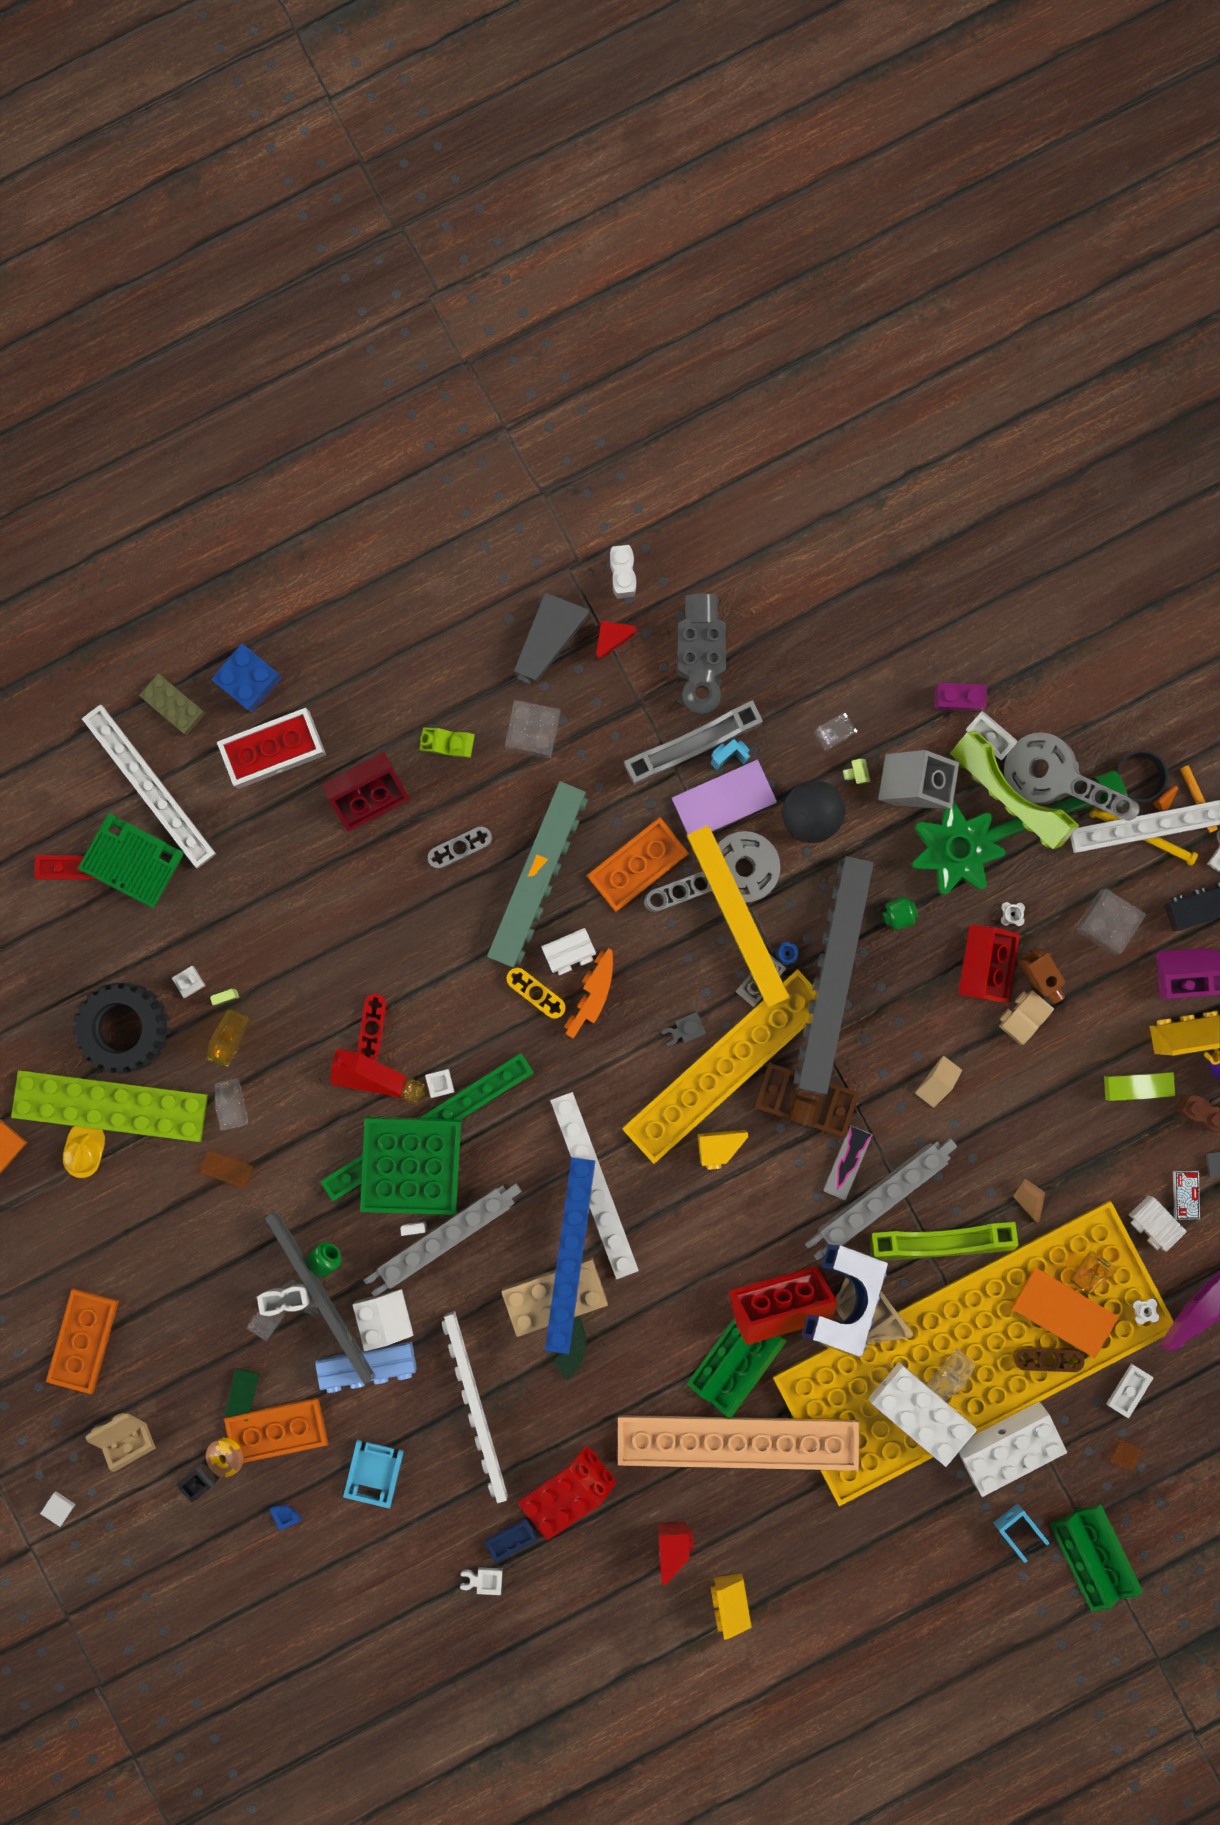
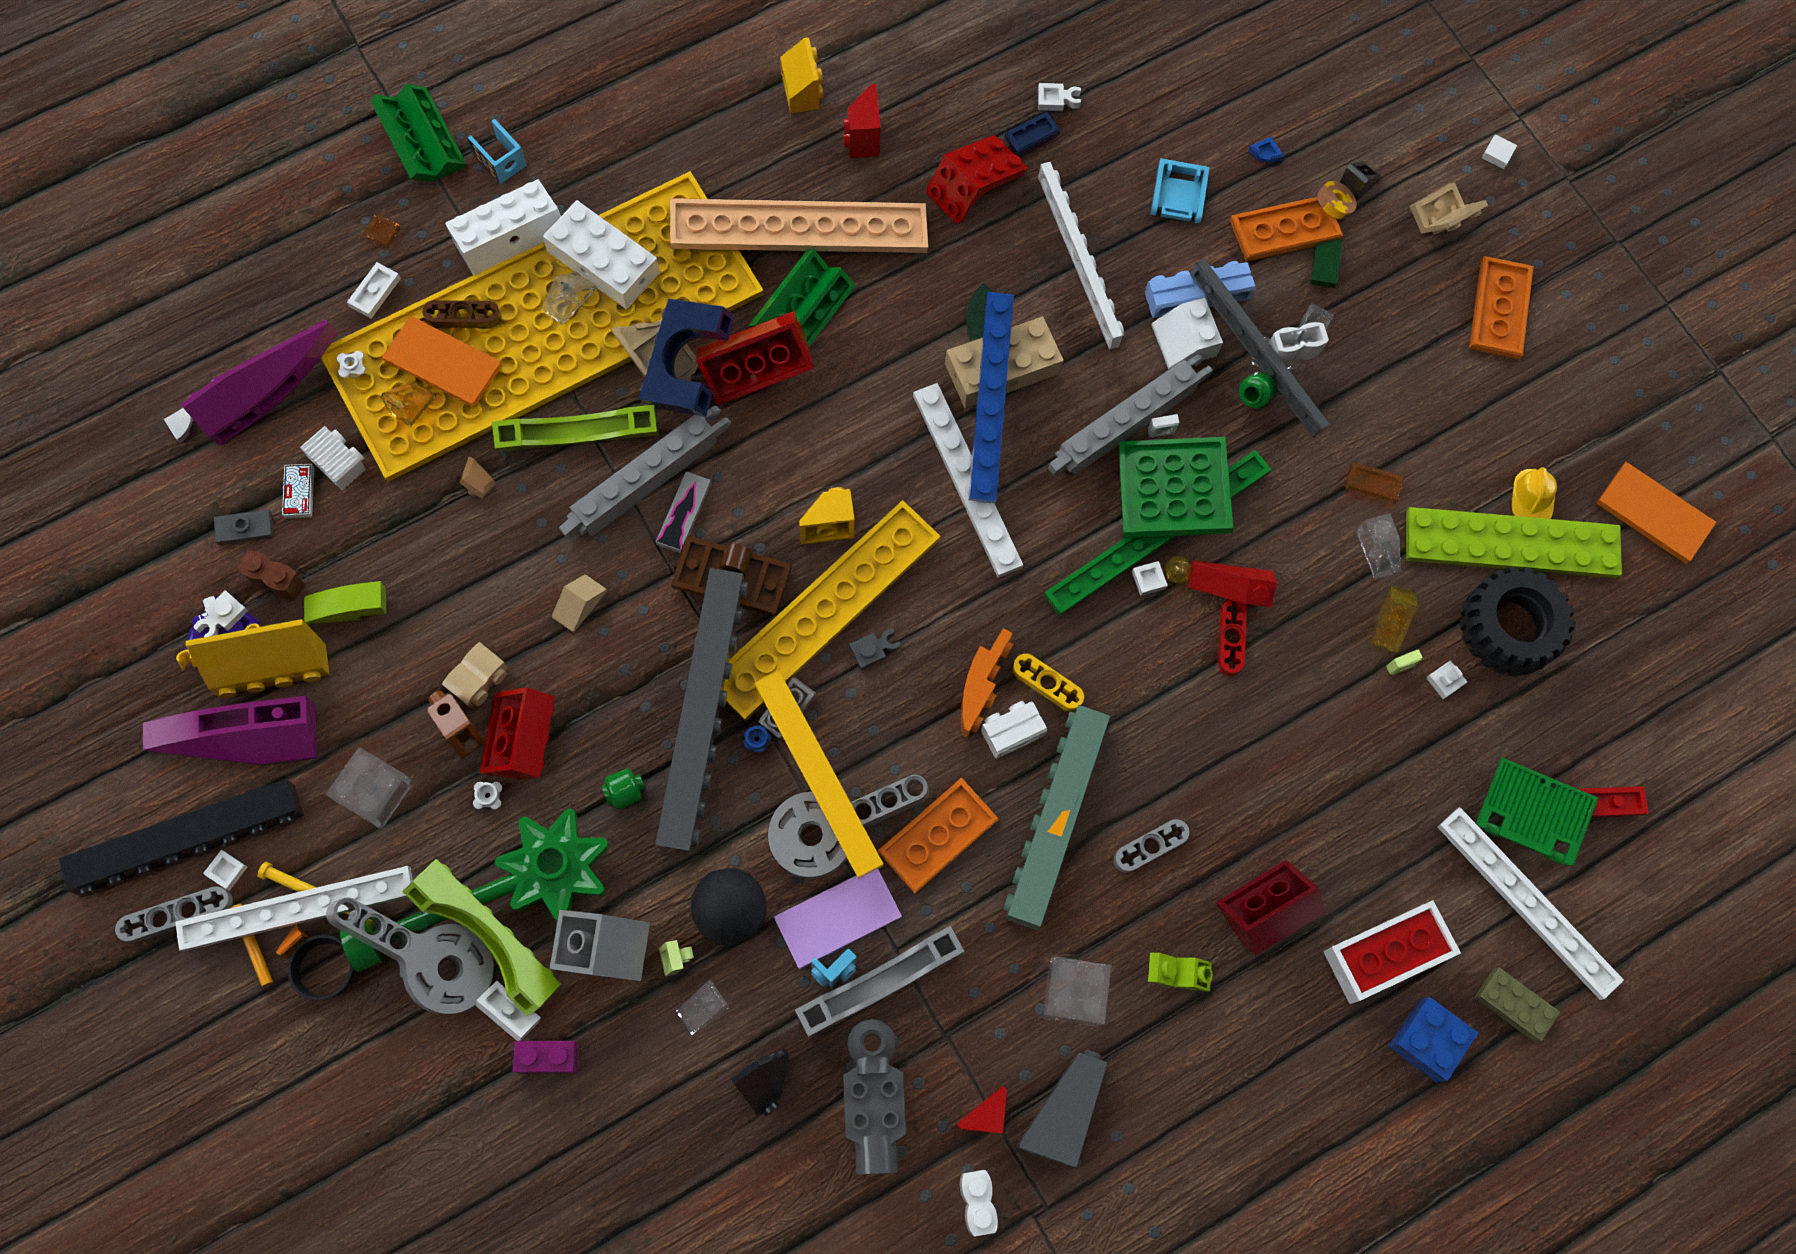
camera: 175 degrees right, 15 degrees down
(789, 666) = (763, 1082): none -> black wedge

